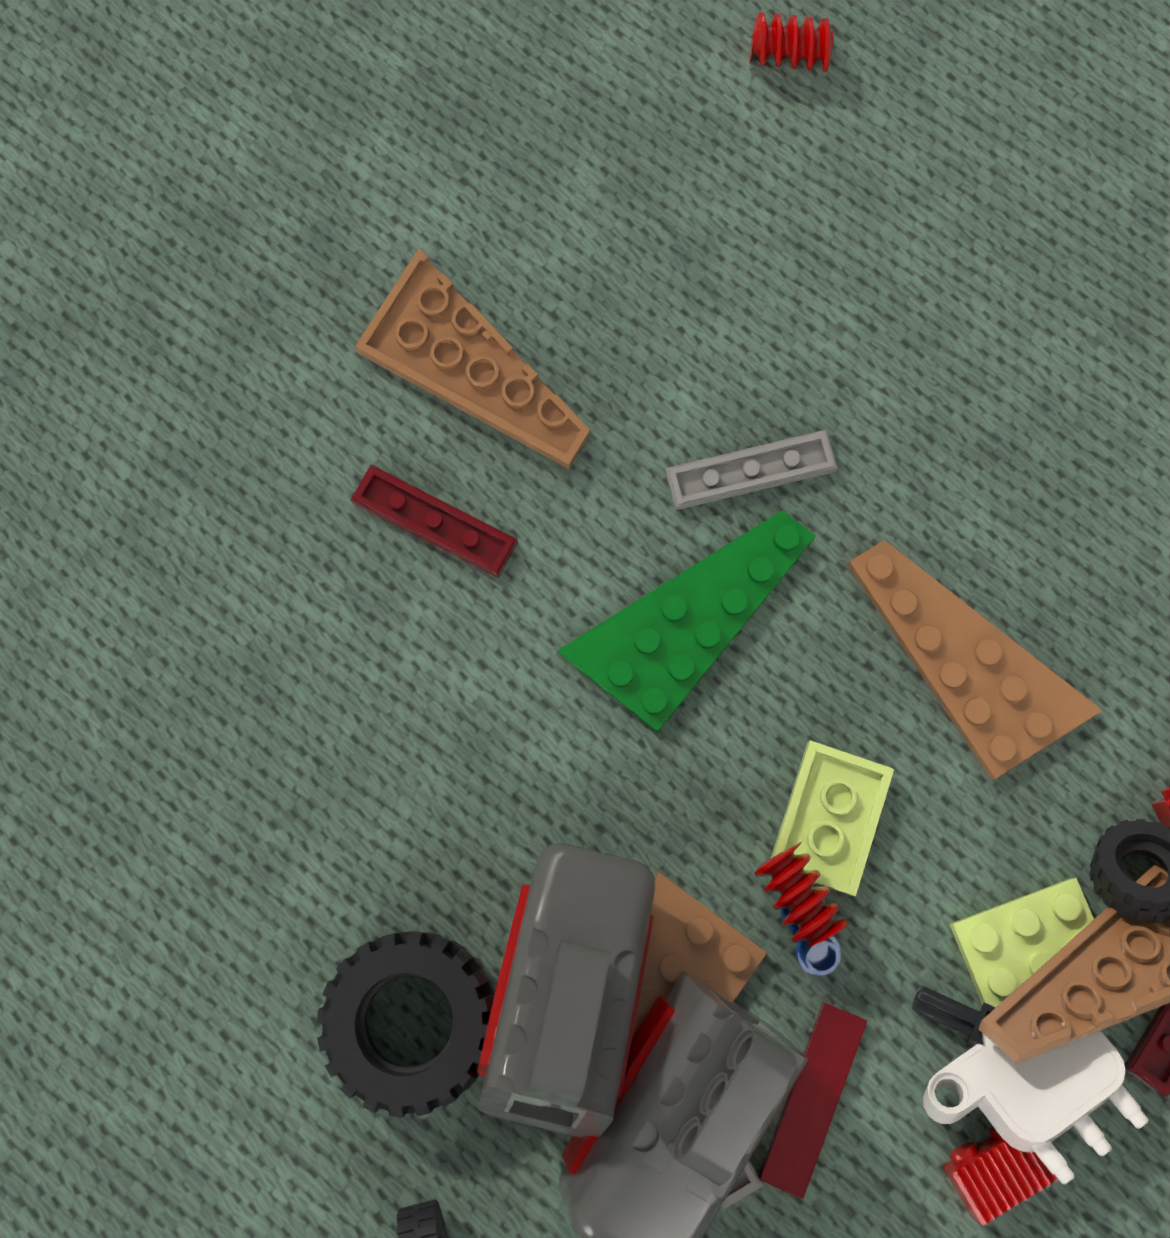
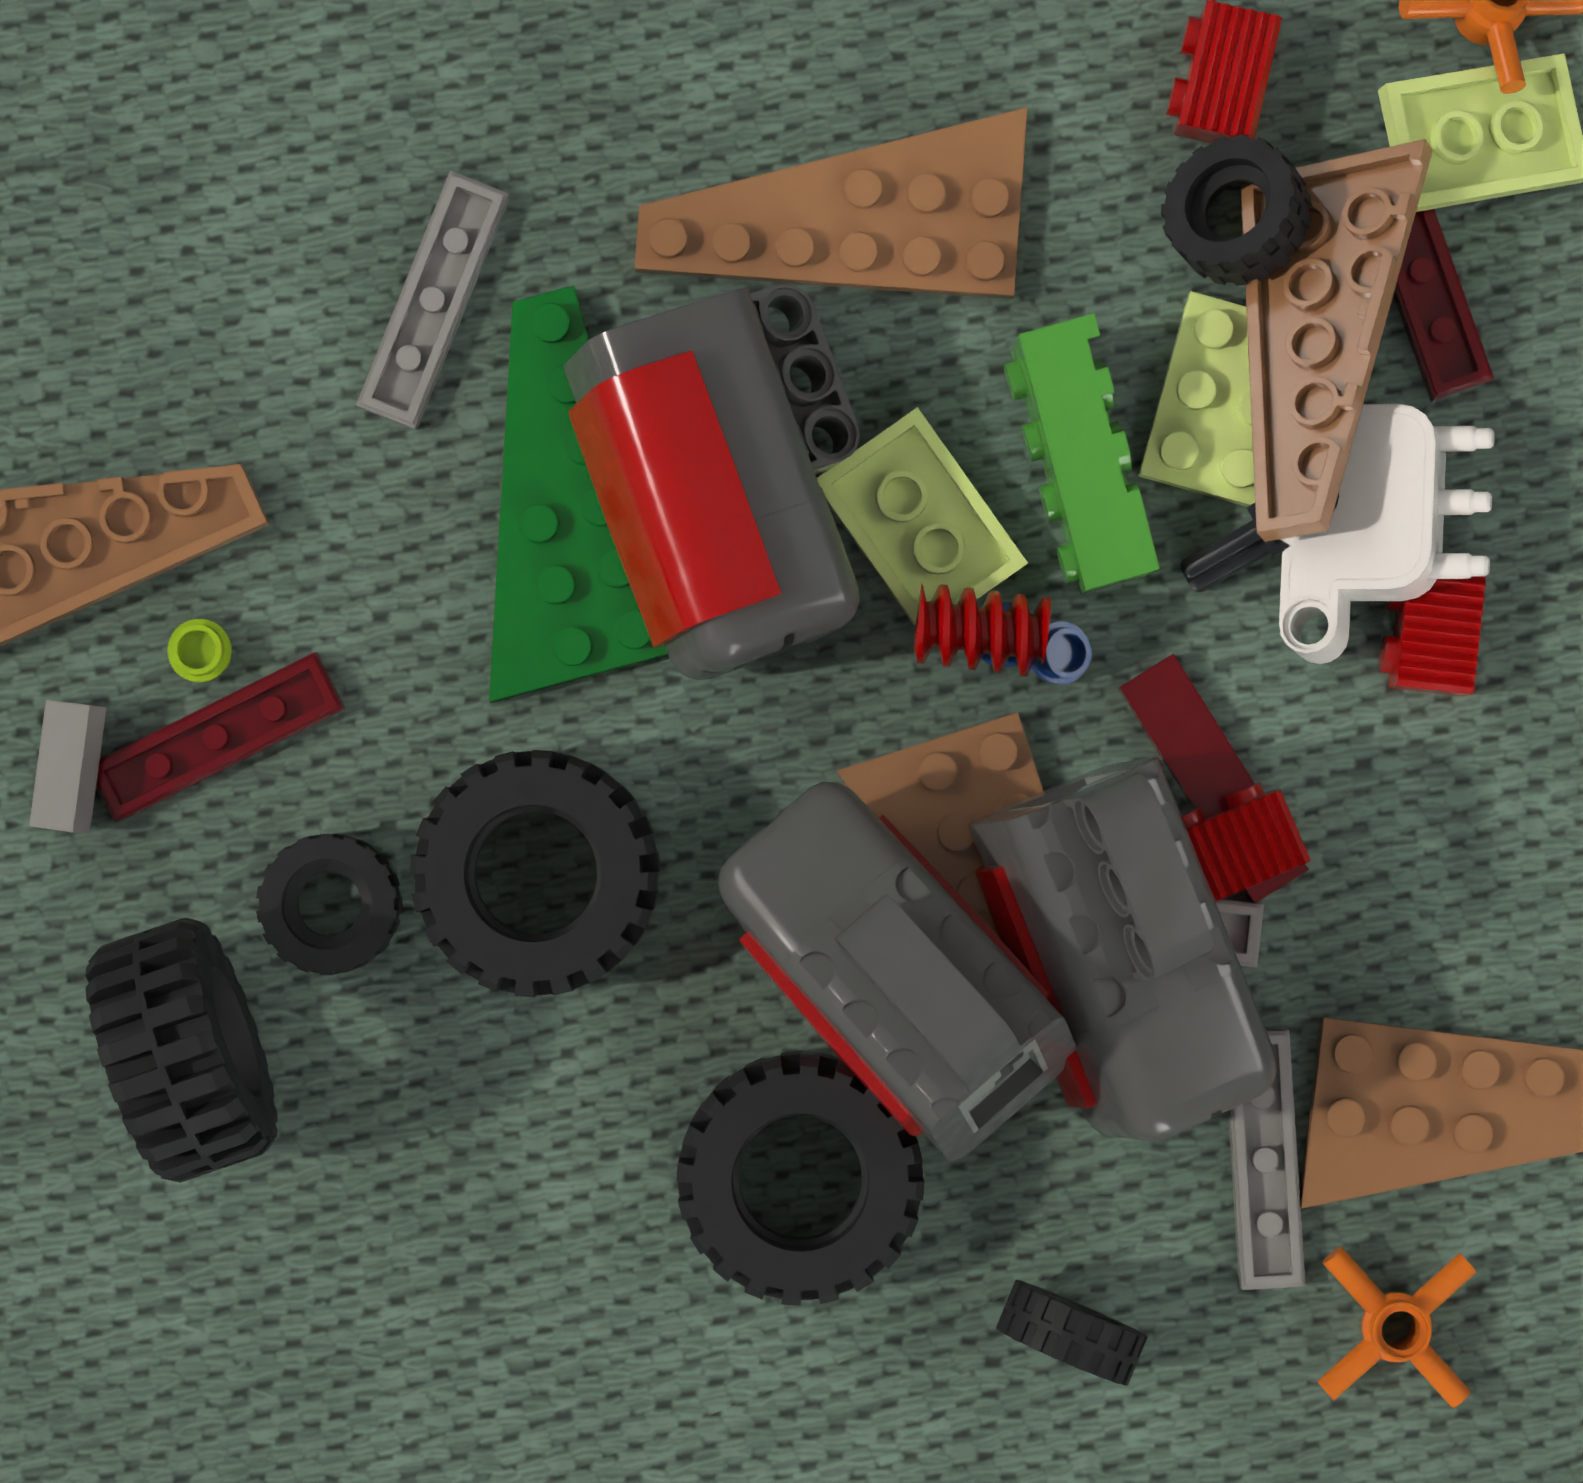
camera: 55 degrees left, 10 degrees up
(240, 613) = (181, 1050): none -> black tyre
(363, 454) = (67, 767): none -> light grey tile
(373, 612) = (281, 913): none -> black tyre
(447, 692) = (449, 889): none -> black tyre
(474, 479) = (199, 650): none -> lime plate
(775, 683) = (715, 472): none -> piece
(797, 1150) = (1246, 841): none -> red brick
(940, 881) = (1081, 455): none -> bright green wedge

